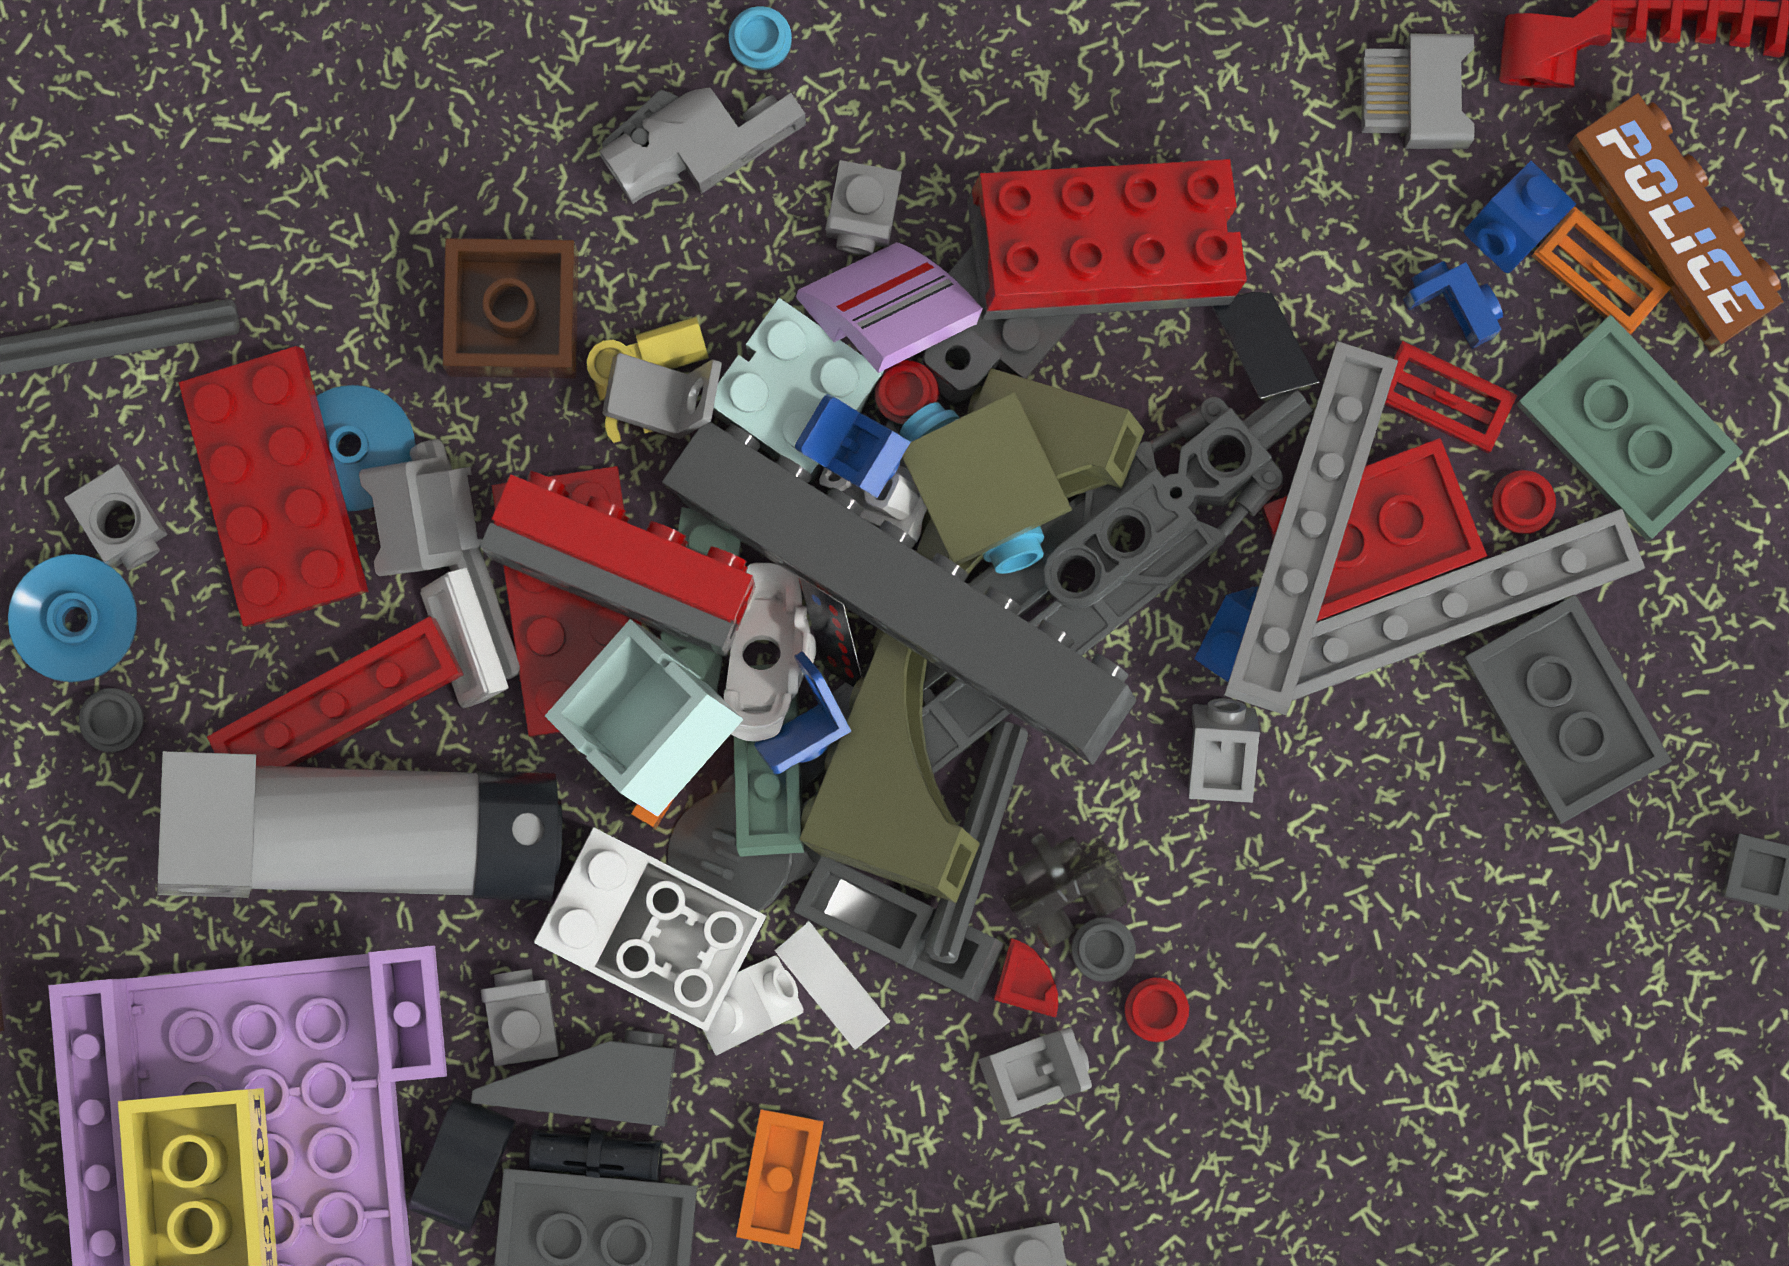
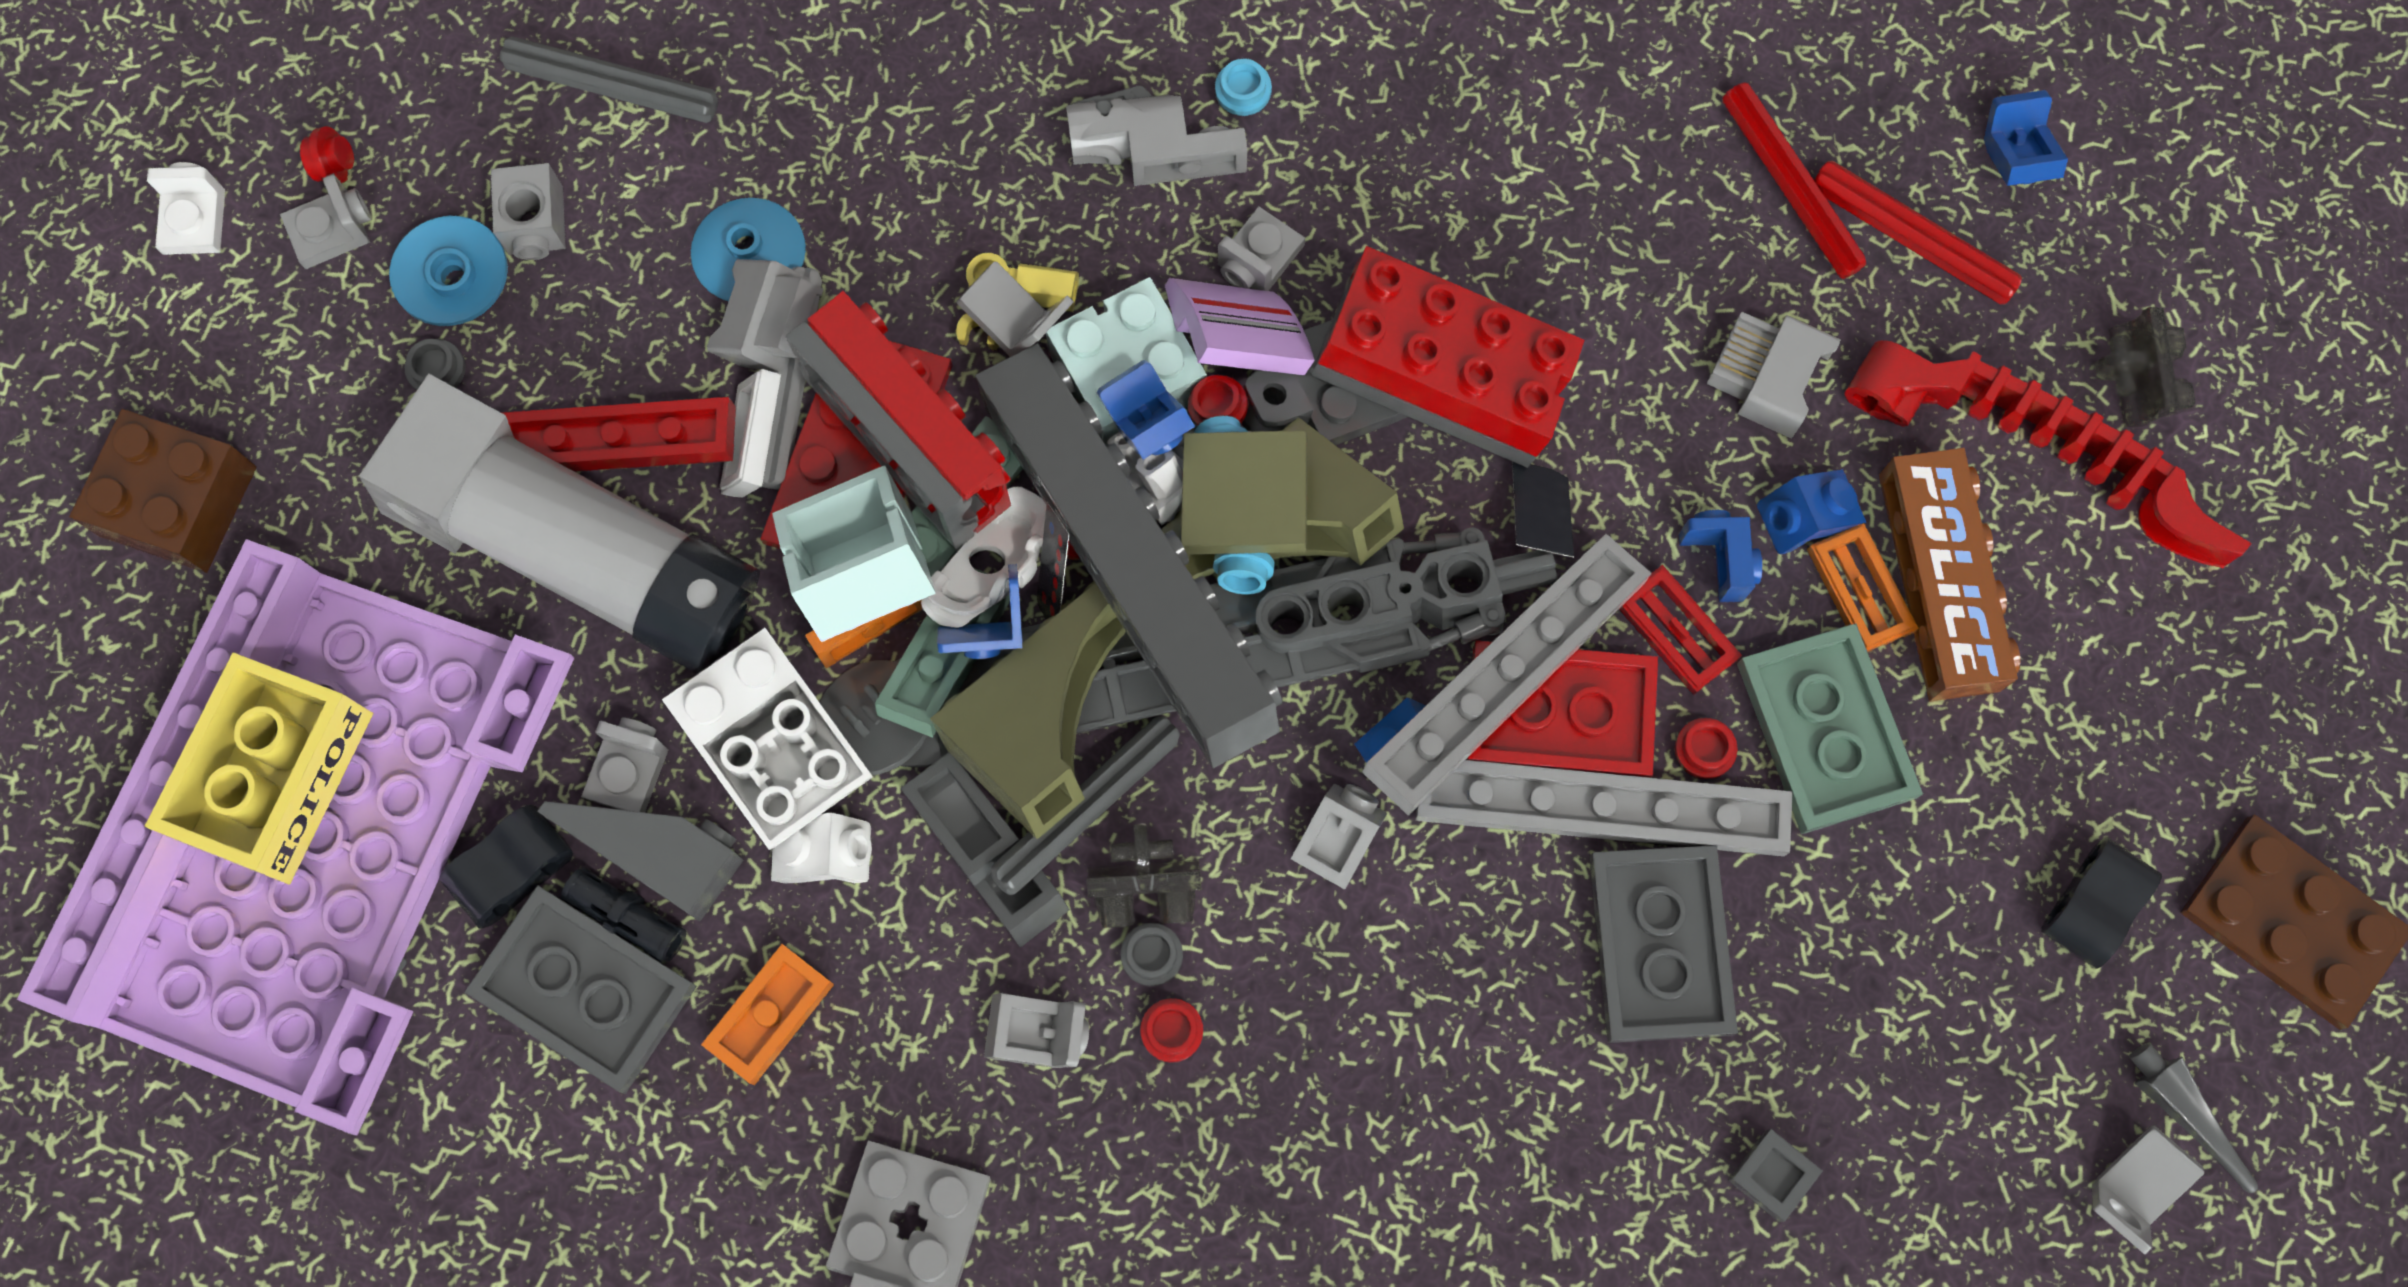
camera: 30 degrees right, 10 degrees down
(273, 487) = (666, 248): red plate -> none
(510, 308) = (928, 191): reddish brown brick -> none
(832, 985) = (901, 869): white sticker -> none
(1026, 981) = (1071, 949): red tile -> none

